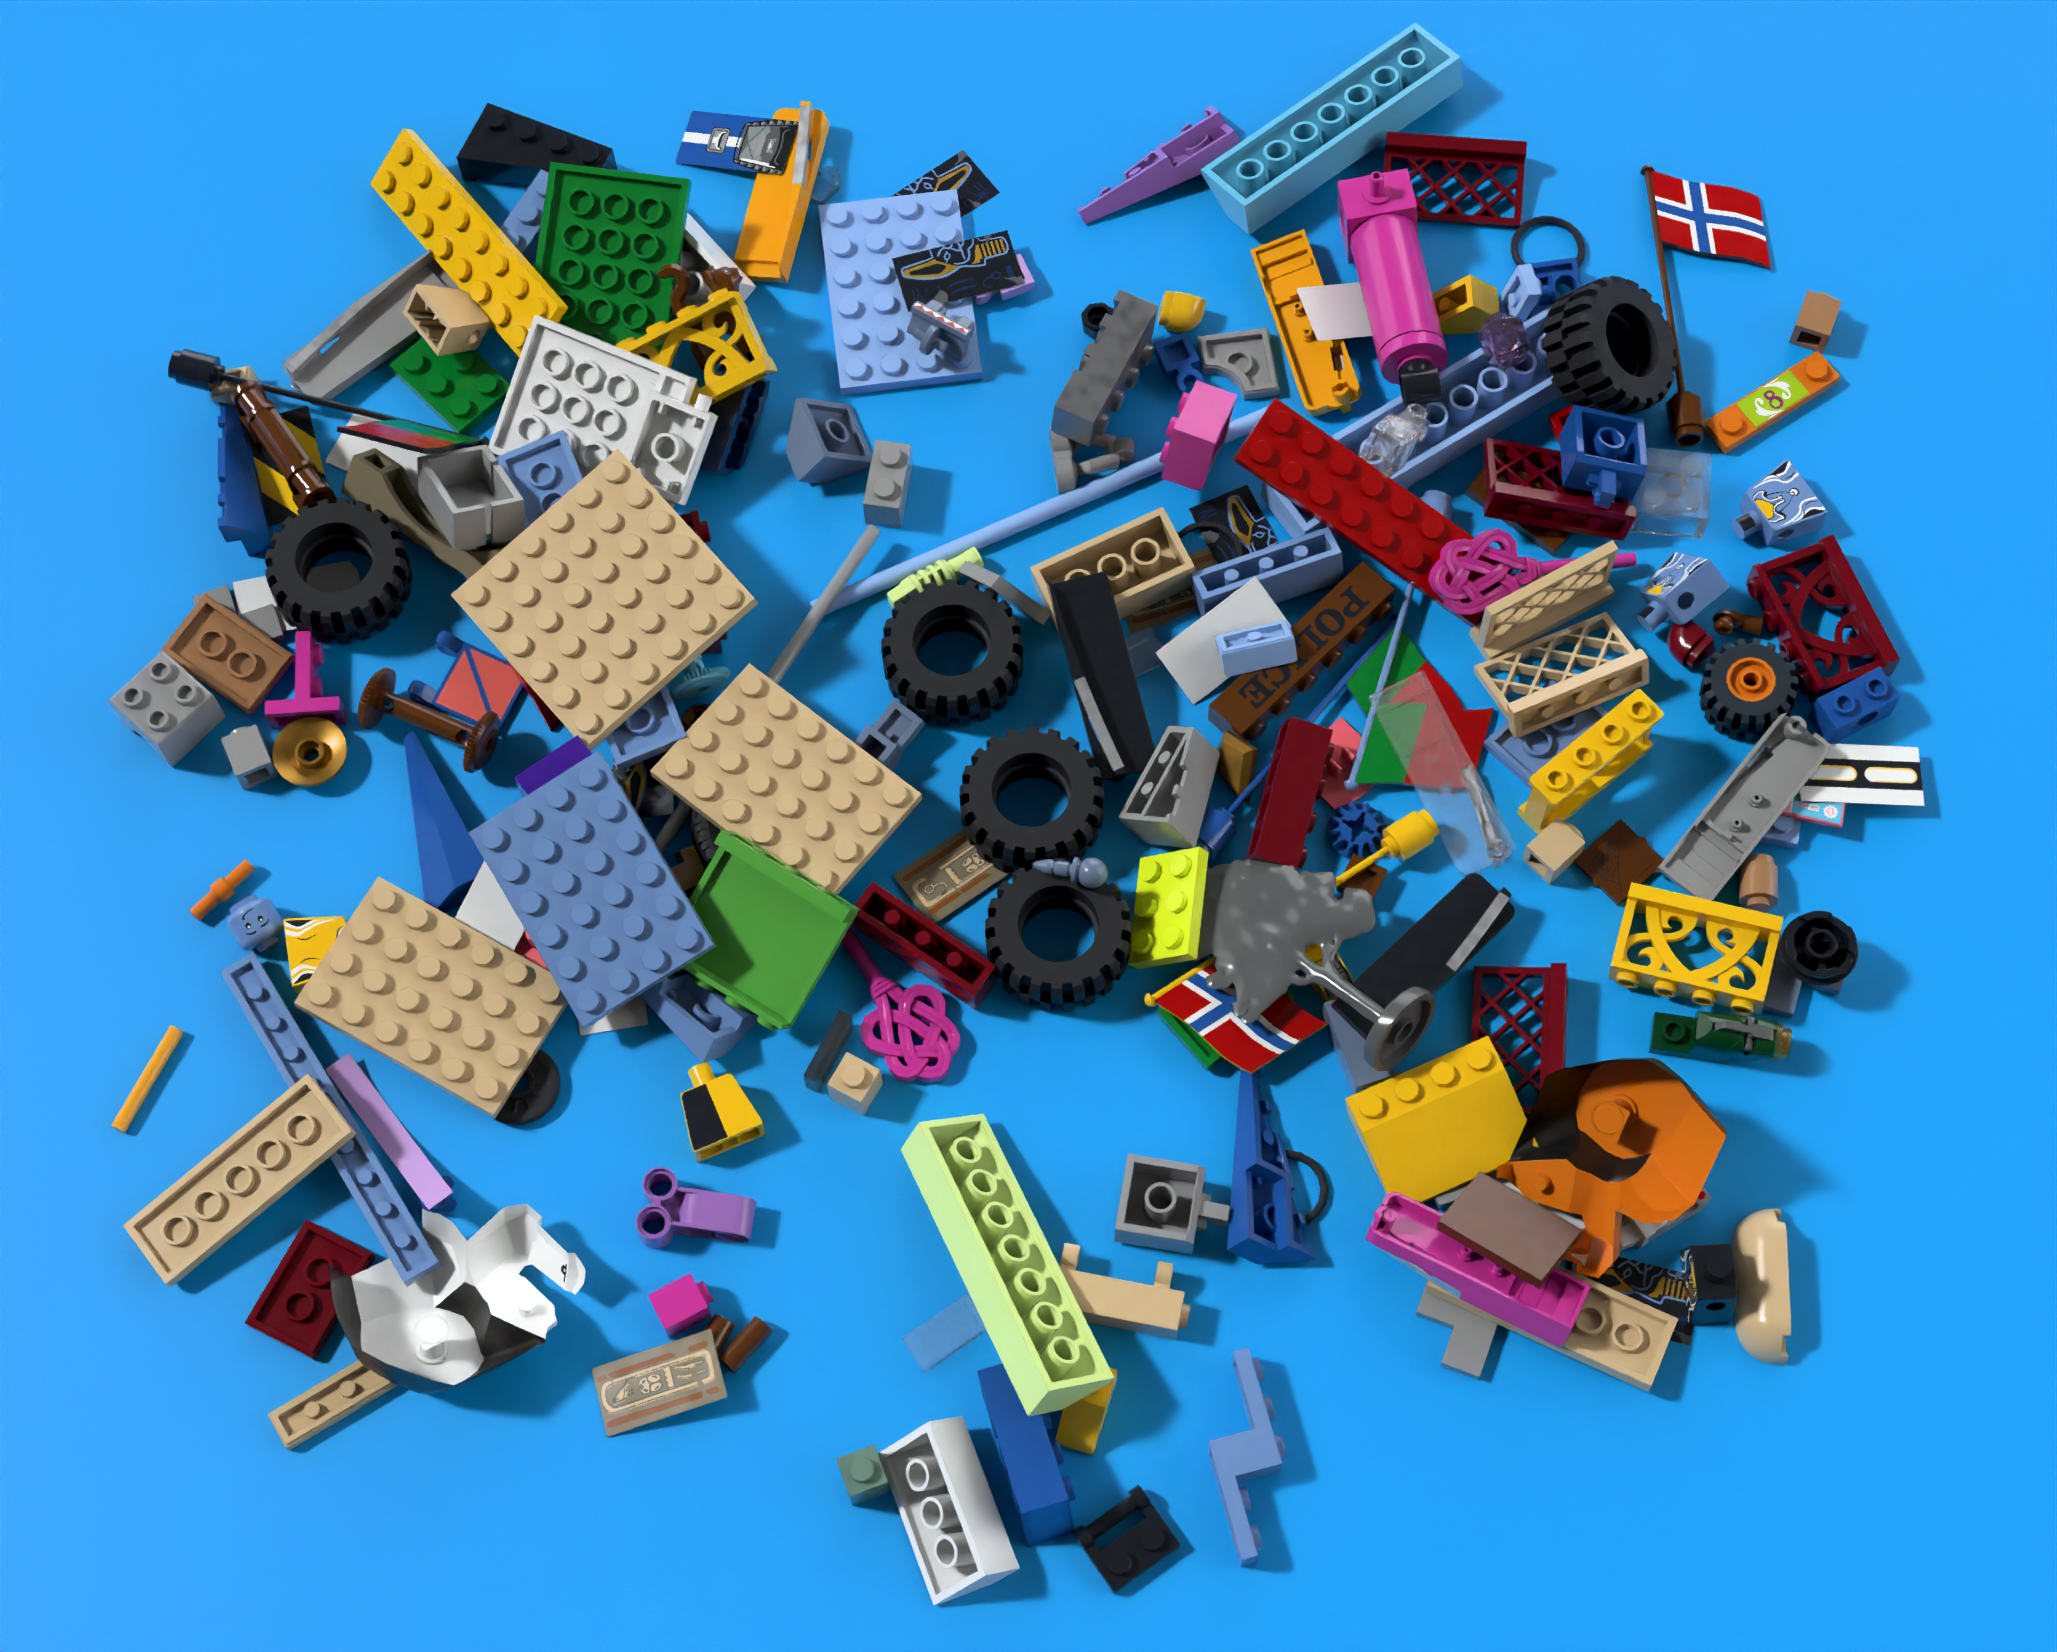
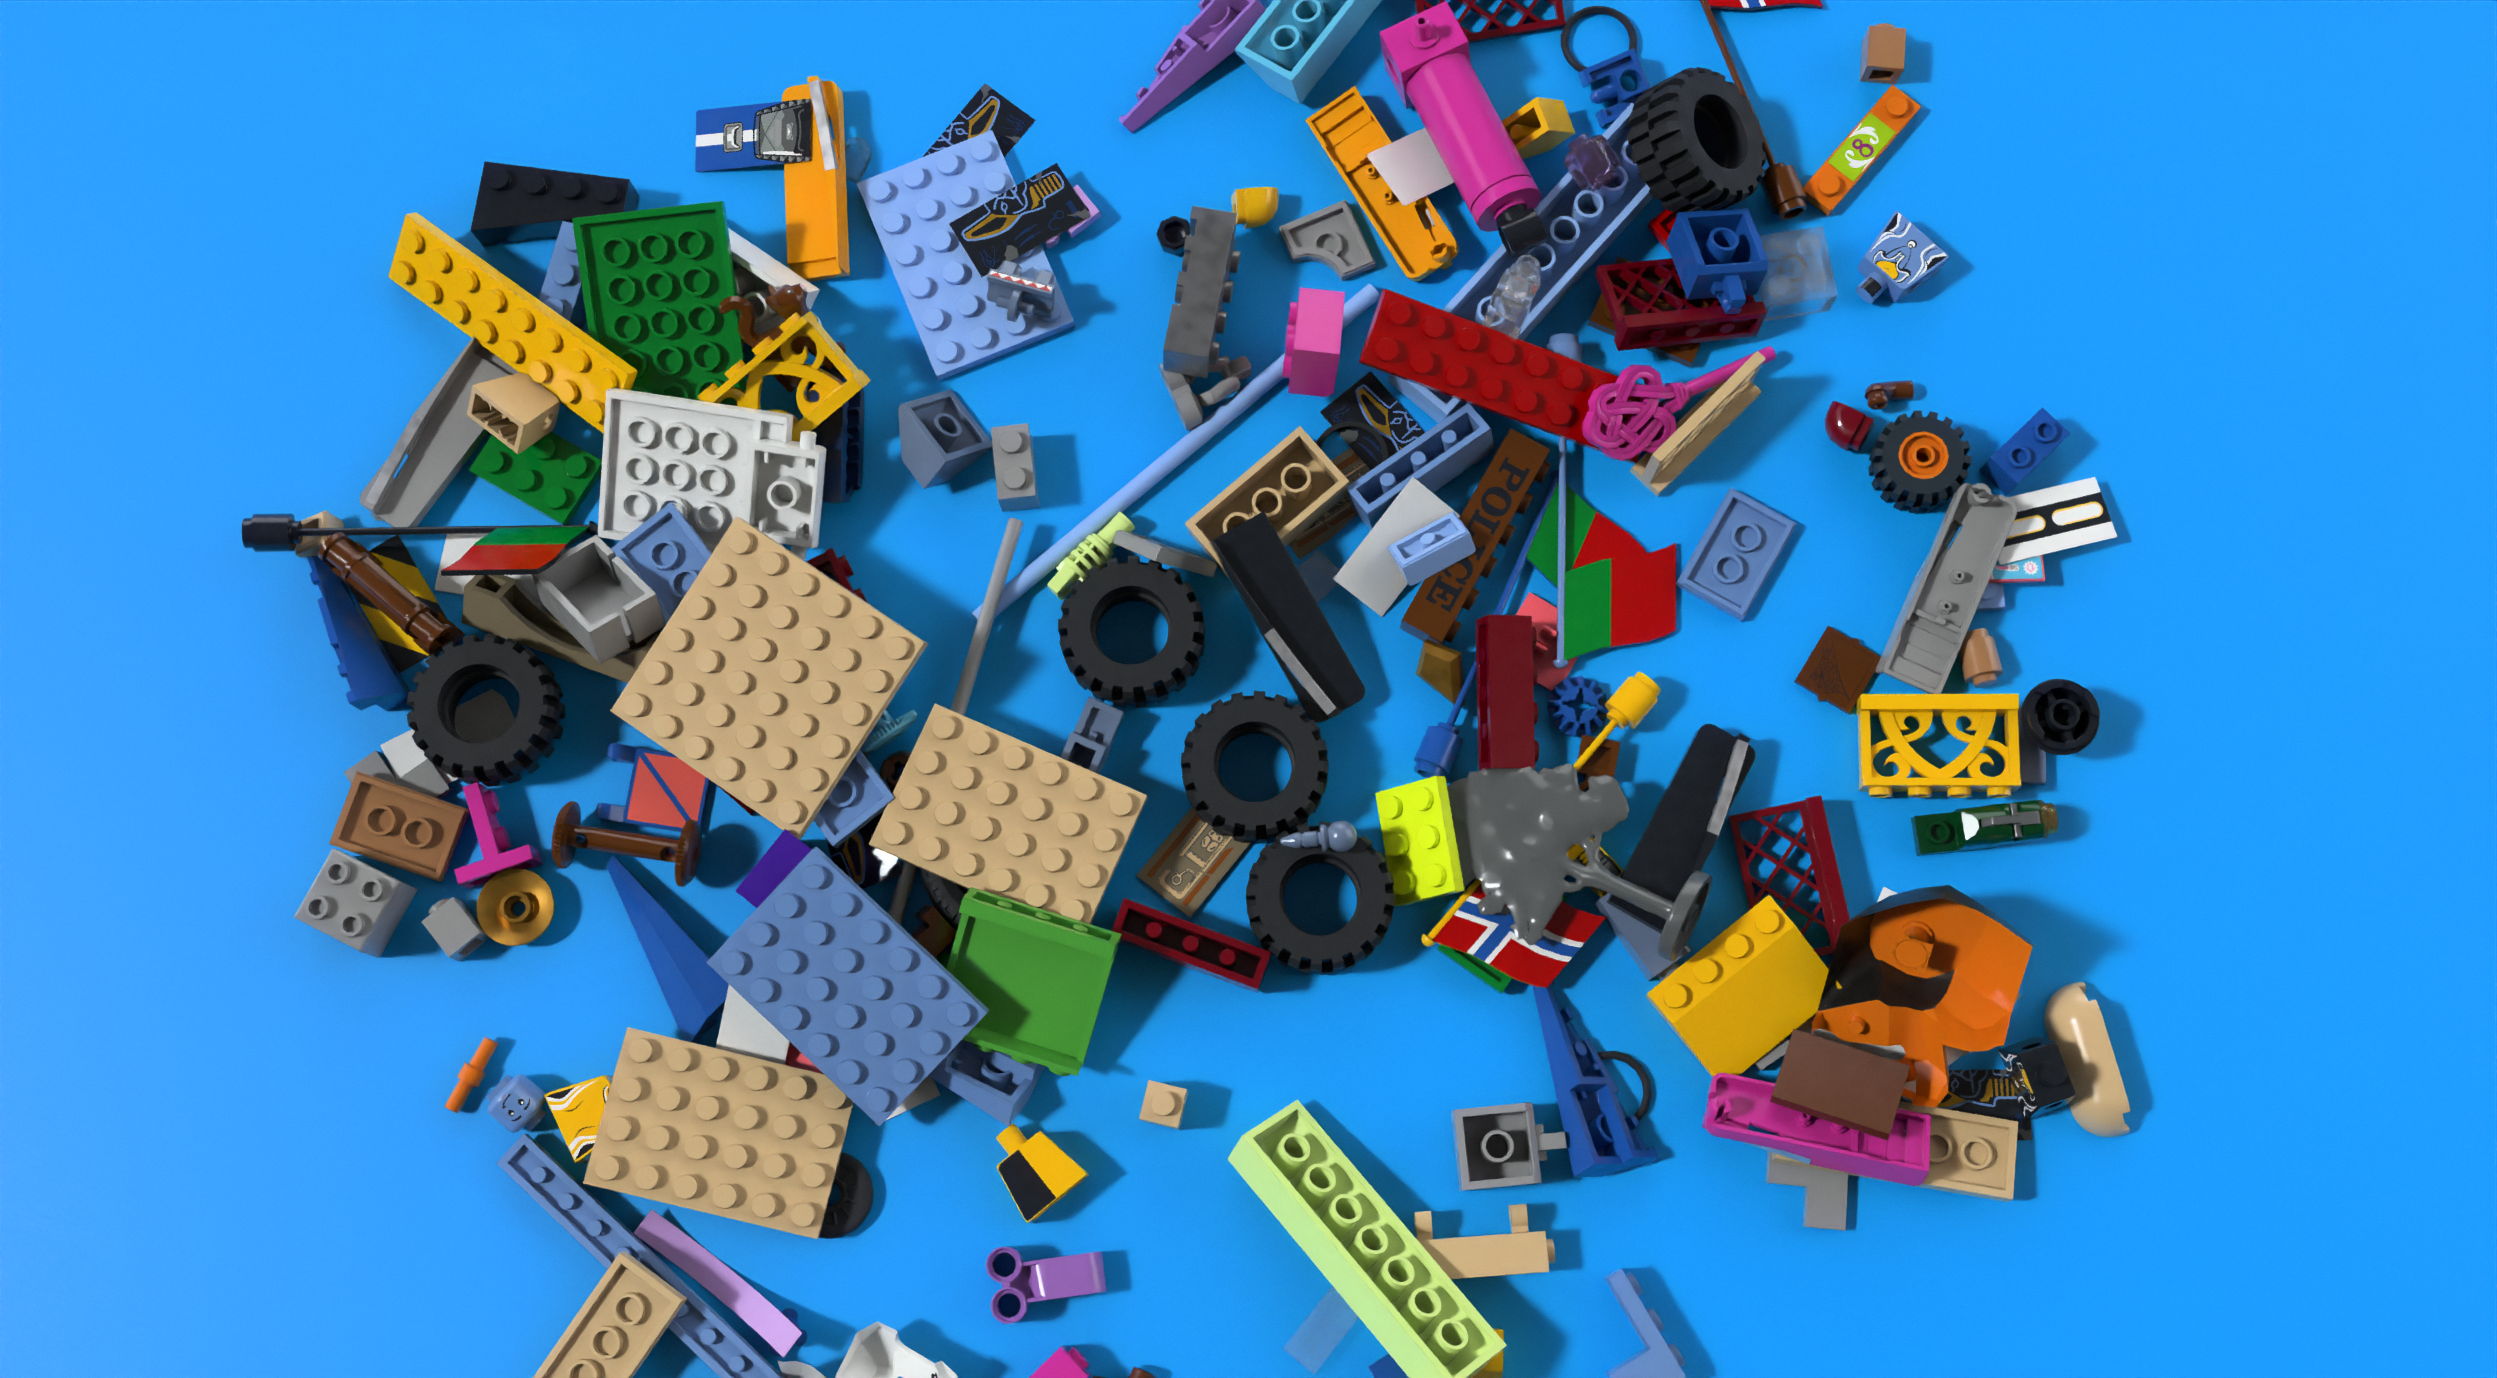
camera: 15 degrees left, 10 degrees up
(147, 1079) = (457, 1291): light orange bar -> none
(829, 1051) = (1128, 1078): clear smoke tile -> none
(908, 1003) = (1213, 1058): dark pink piece -> none
(1172, 790) = (1391, 718): light grey wedge -> none
(1178, 359) = (1267, 256): blue plate -> none
(1443, 774) = (1647, 629): clear piece -> none
(1520, 292) = (1590, 105): light blue plate -> none
(1554, 849) = (1775, 676): tan brick -> none
(1574, 691) = (1750, 515): tan fence -> none
(1591, 762) = (1791, 583): yellow fence -> none
(1680, 590) = (1828, 377): medium blue torso -> none
(1831, 572) = (1989, 337): dark red fence -> none

